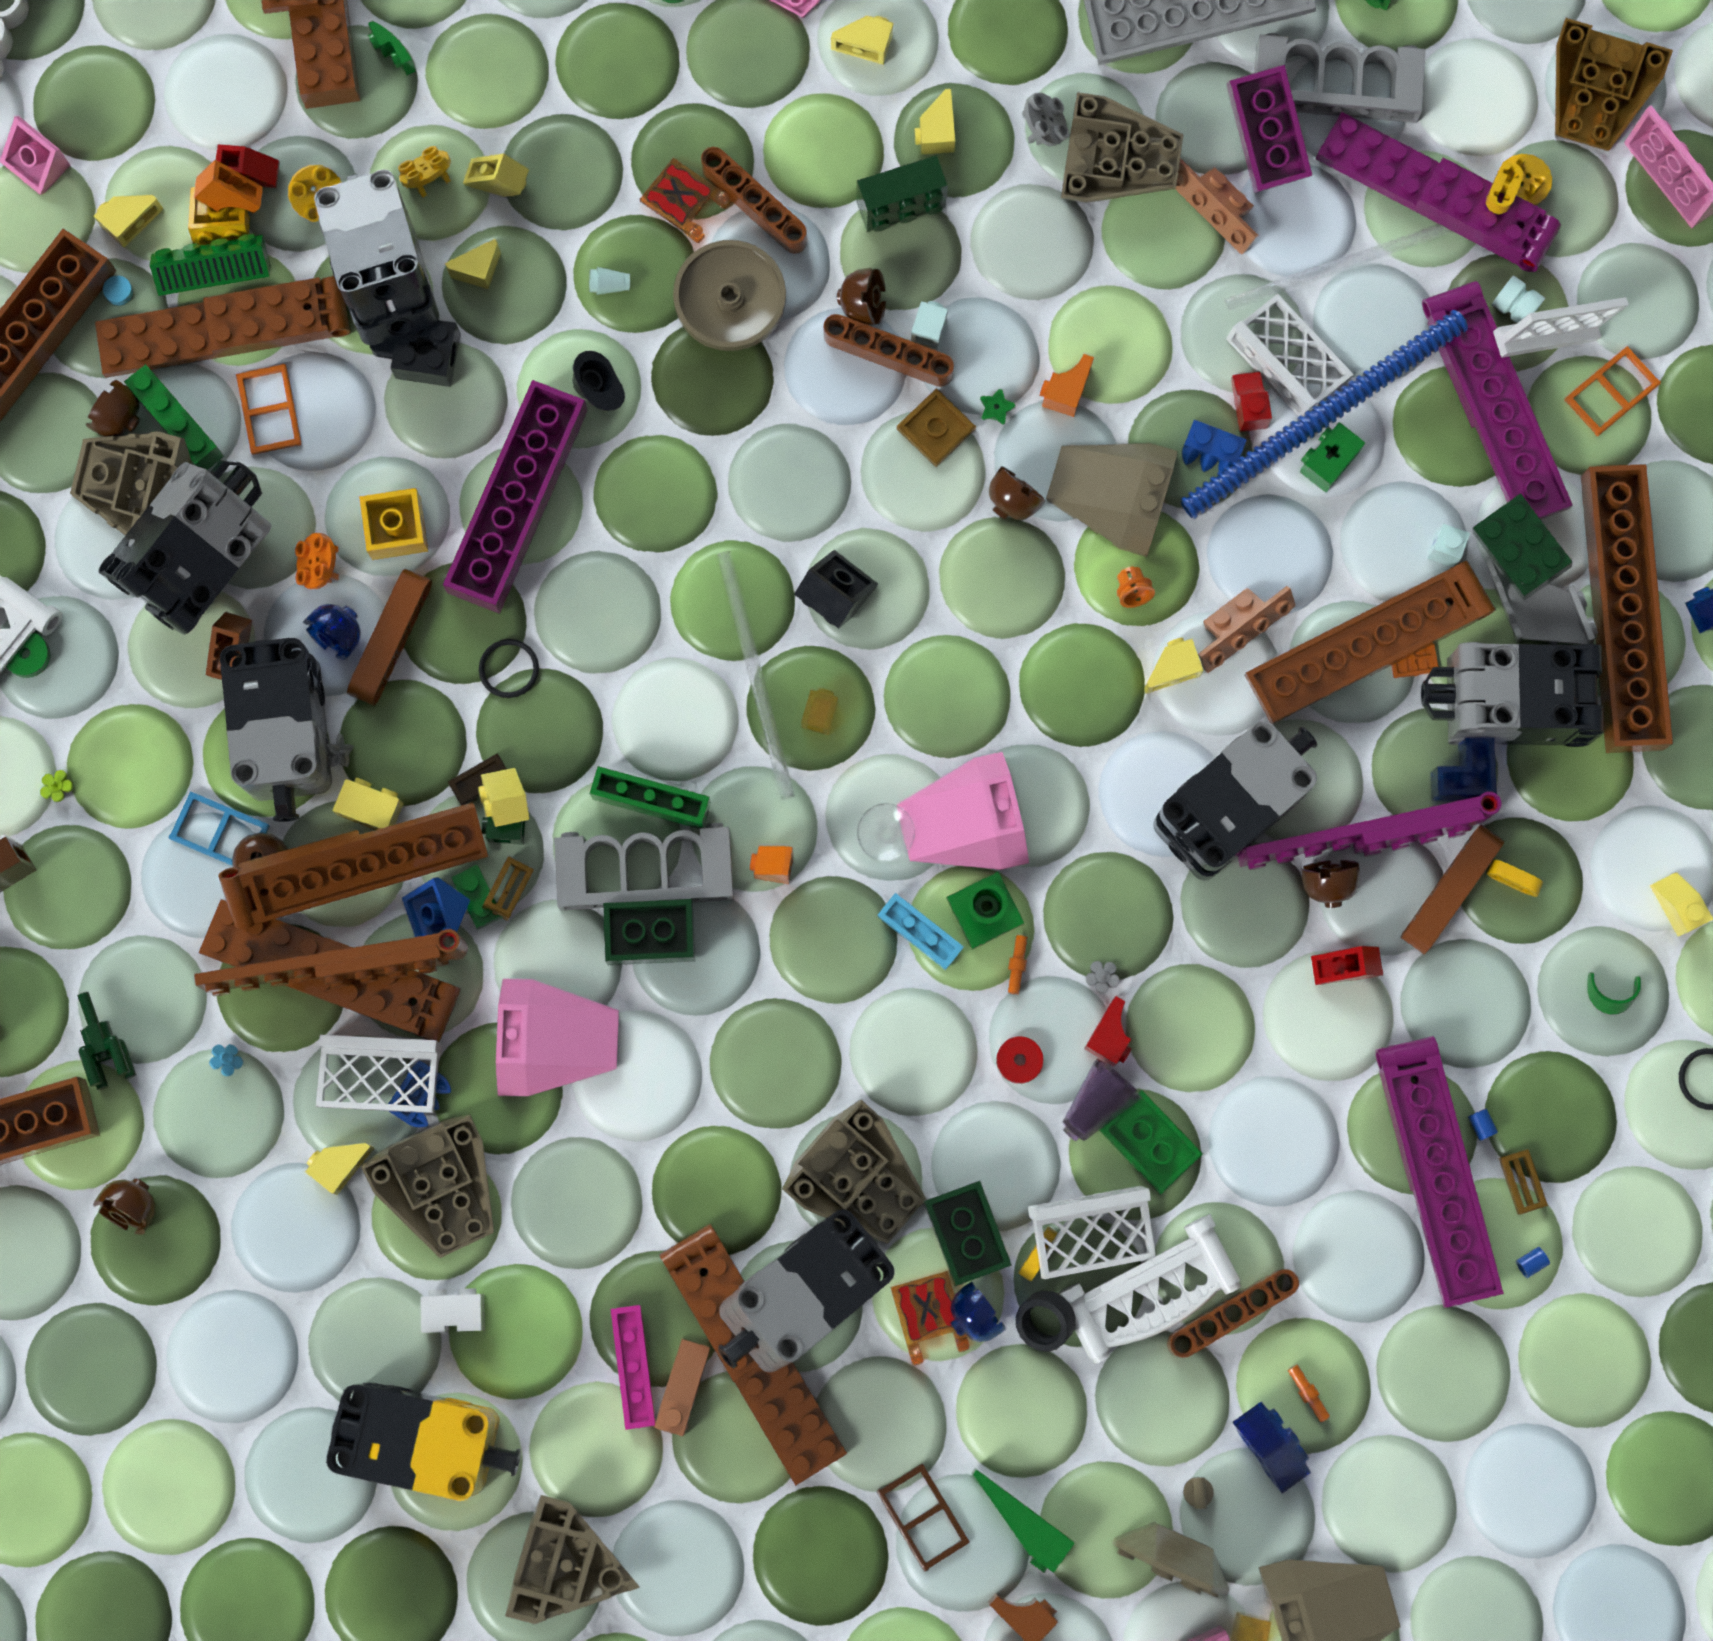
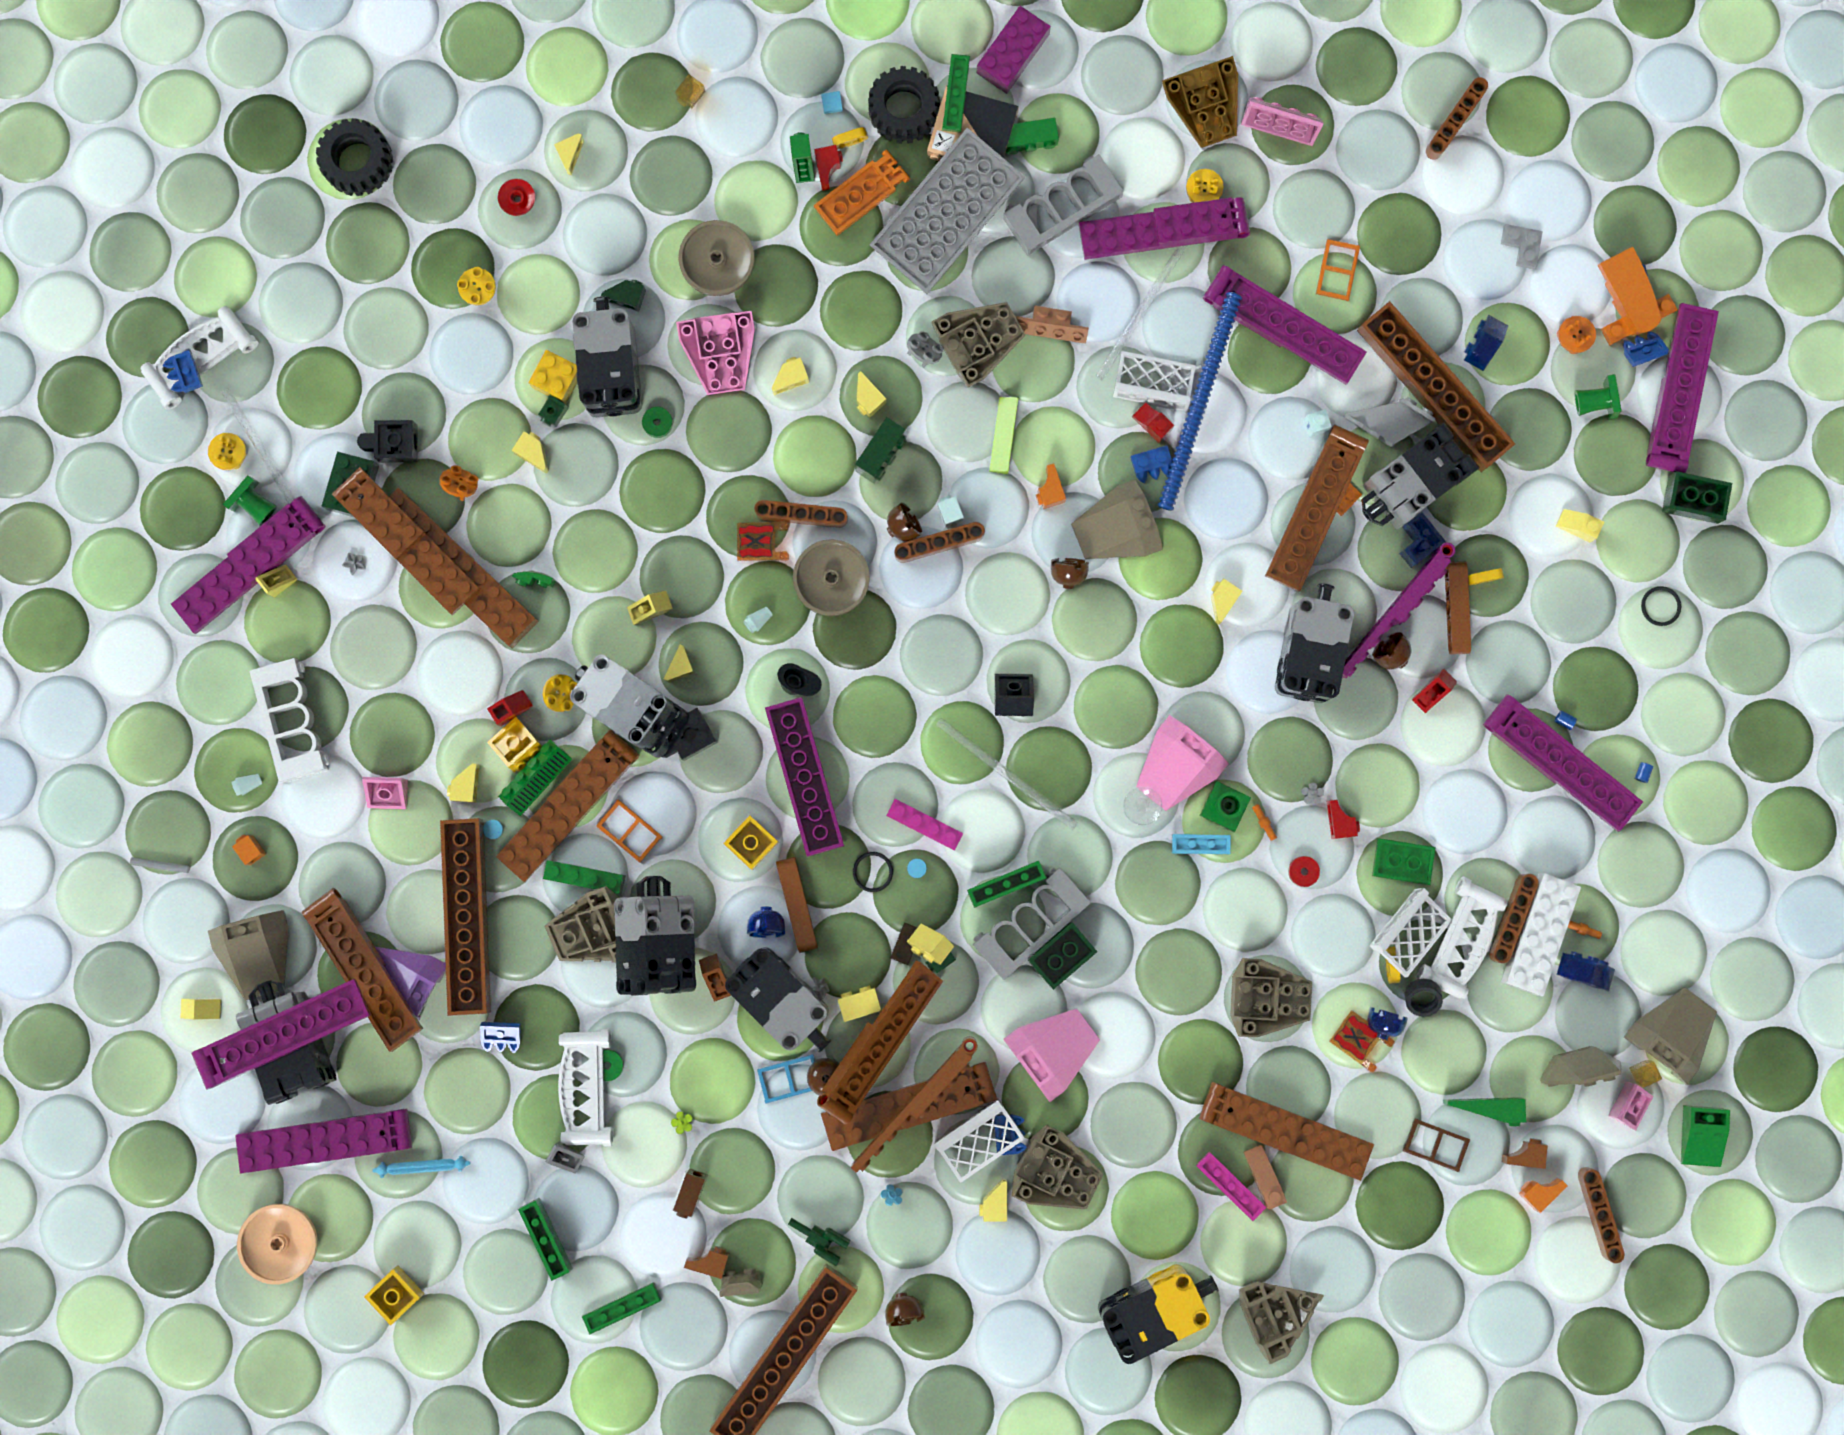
camera: 40 degrees left, 5 degrees up
(115, 411) = (551, 898): reddish brown cylinder -> none
(223, 187) = (510, 729): orange arch -> none
(316, 561) = (725, 895): orange plate -> none
(425, 169) = (608, 634): yellow plate -> none
(435, 907) = (941, 1033): blue slope -> none
(445, 1310) = (1116, 1231): white brick -> none
(474, 887) = (954, 1006): green plate -> none
(497, 908) = (972, 1005): pearl gold tile -> none
(562, 703) = (916, 868): none -> medium azure tile
(612, 660) = (924, 824): none -> dark pink plate
(772, 863) = (1097, 869): orange slope -> none
(804, 1293) = (1295, 1082): piece -> none
(820, 711) = (1057, 767): clear yellow brick -> none
(936, 427) = (996, 564): pearl gold tile -> none
(967, 1233) = (1349, 983): dark green brick -> none
(996, 414) = (1015, 529): green plate -> none
(1062, 287) = (1003, 435): none -> slope
(1098, 1102) = (1363, 862): clear purple cone -> none
(1126, 591) = (1168, 578): orange piece -> none
(1198, 1492) = (1565, 1023): dark tan plate -> none
(1241, 622) = (1239, 548): nougat bracket -> none
(1251, 1358) = (1541, 935): none -> white brick
(1269, 128) = (1051, 264): magenta brick -> none
(1326, 471) = (1224, 410): green brick -> none
(1499, 185) = (1205, 201): yellow beam -> none
(1504, 1161) = (1609, 744): pearl gold tile -> none
(1517, 300) = (1253, 259): light aqua wheel -> none
(1522, 547) = (1359, 396): dark green brick -> none
(1557, 327) = (1285, 262): white fence -> none
(1609, 1005) = (1582, 607): green helmet -> none

